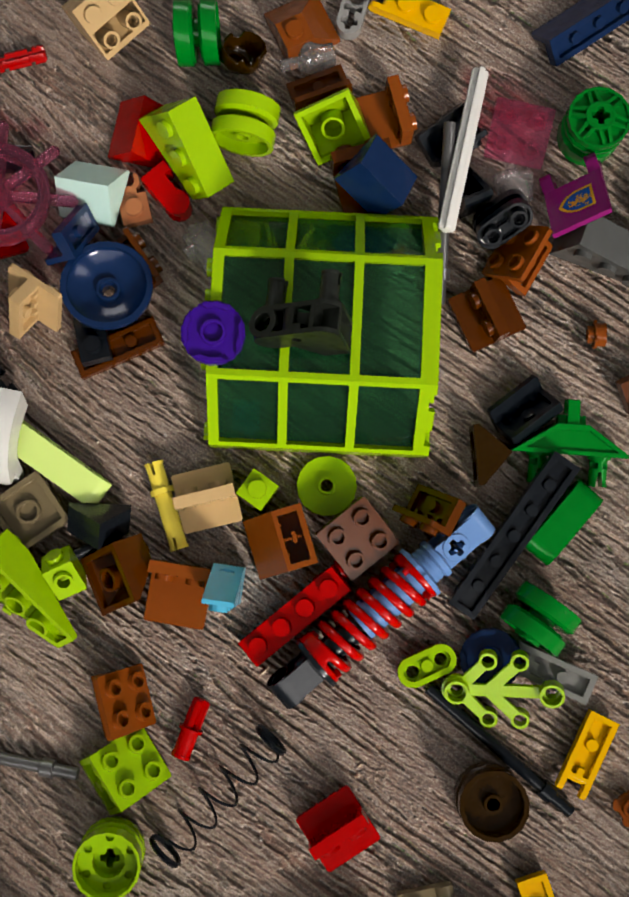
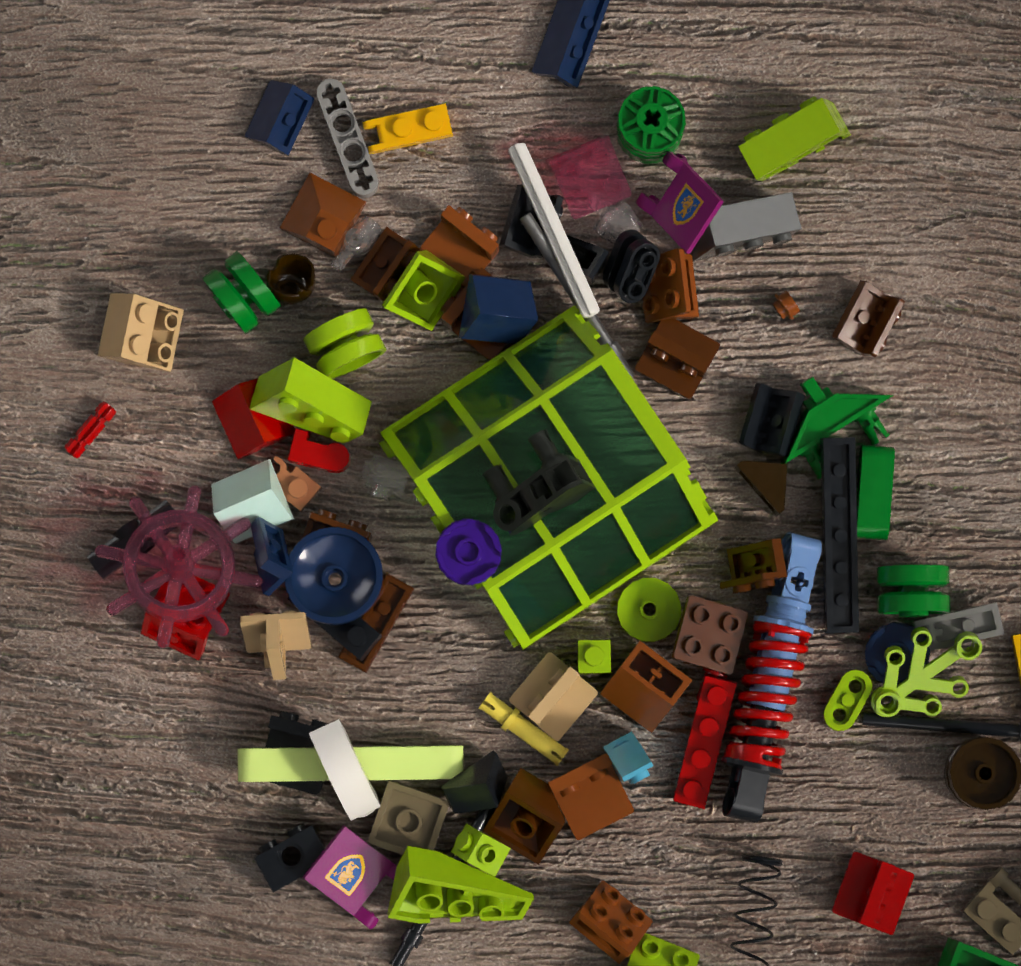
camera: 35 degrees left, 0 degrees up
(191, 729) = (687, 902): red axle -> none

